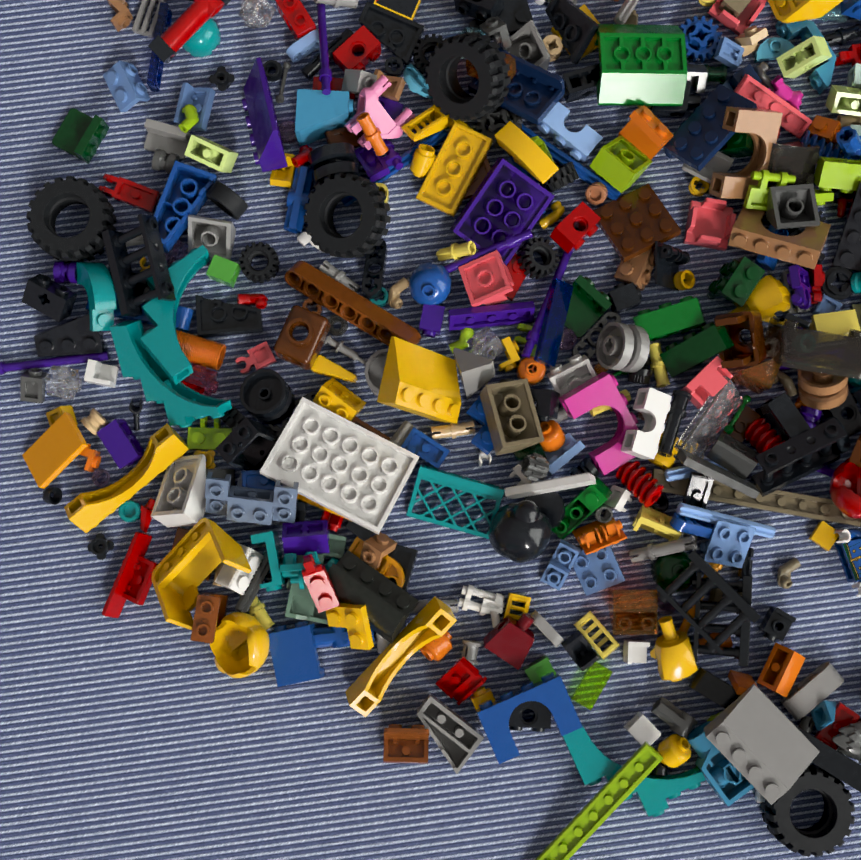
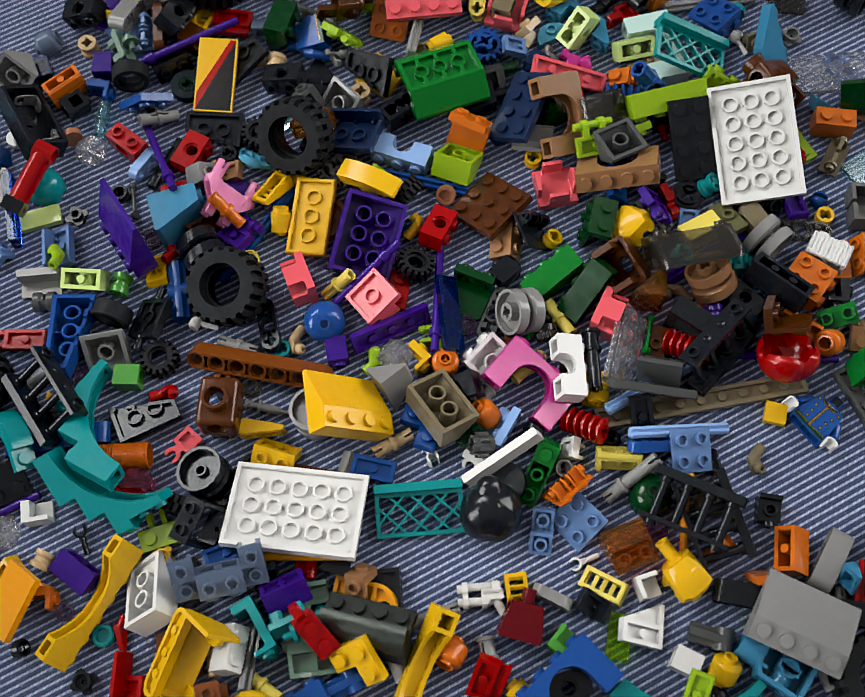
camera: 10 degrees left, 15 degrees down
(186, 68) = (41, 218): none -> yellowish green tile
(243, 171) = (120, 286): none -> bright green wheel
(262, 219) = (150, 319): none -> black plate
(419, 234) = (299, 280): none -> coral panel
(588, 606) = (583, 561): none -> white hand
(617, 686) = (643, 628): none -> white wing
(653, 17) = (438, 40): none -> yellow brick

